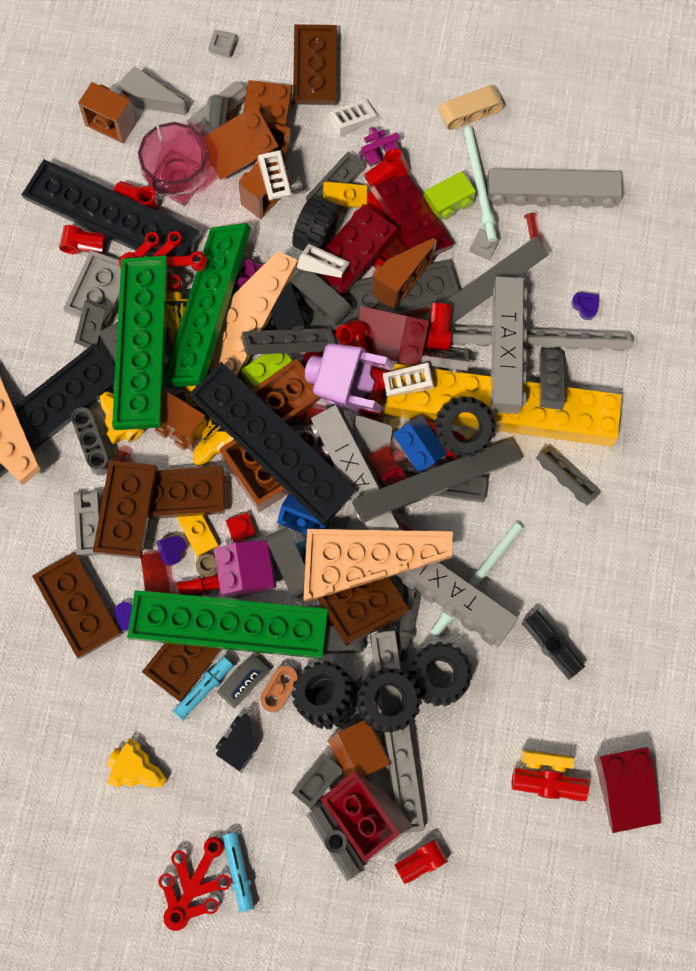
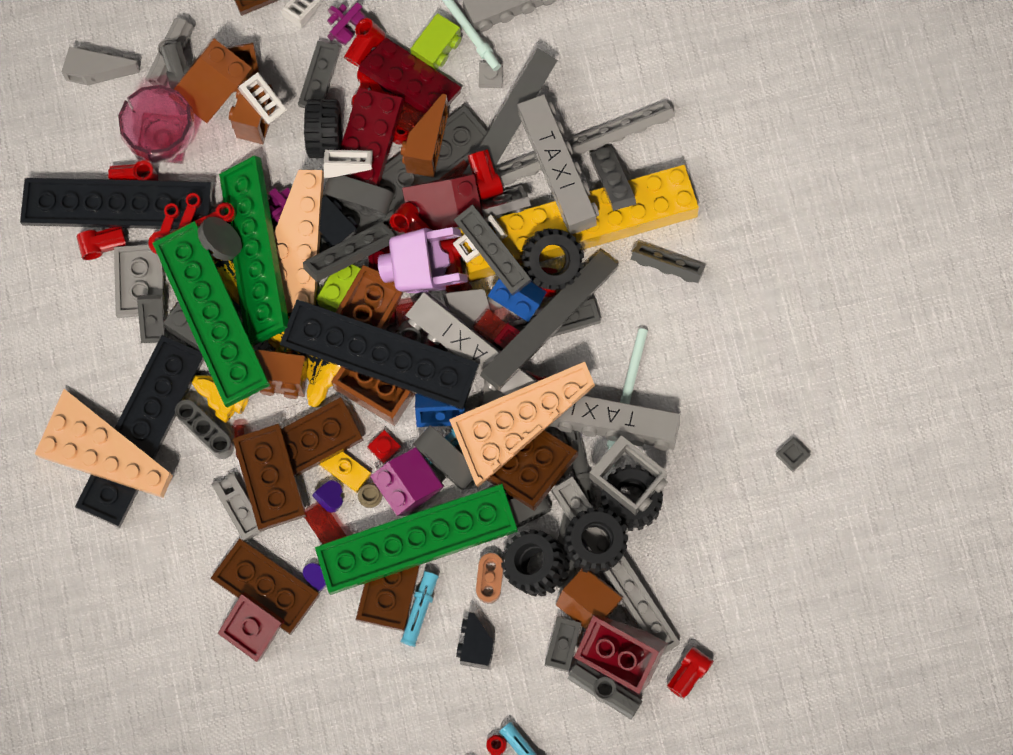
camera: 15 degrees left, 0 degrees up
(45, 636) = (251, 627): none -> dark red plate
(107, 112) = (65, 104): dark orange brick -> none
(133, 767) = (389, 708): yellow rock -> none
(181, 280) = (219, 238): none -> dark grey tile
(198, 585) = (371, 517): red axle -> none
(243, 681) = (453, 585): dark grey slope -> none
(271, 99) = (219, 23): dark orange brick -> none
(345, 194) = (335, 84): yellow plate -> none
(415, 395) = (492, 250): none -> dark grey plate
(436, 630) = (609, 459): none -> light grey window
(531, 223) = (528, 37): clear red piece -> none
(535, 759) = (753, 535): yellow plate -> none
(550, 784) = (775, 552): red piece -> none
(564, 657) = (709, 417): black piece -> none
(586, 304) = (614, 91): dark purple tile -> none
(605, 700) = (793, 454): none -> dark grey tile
(629, 789) = (848, 524): dark red slope -> none

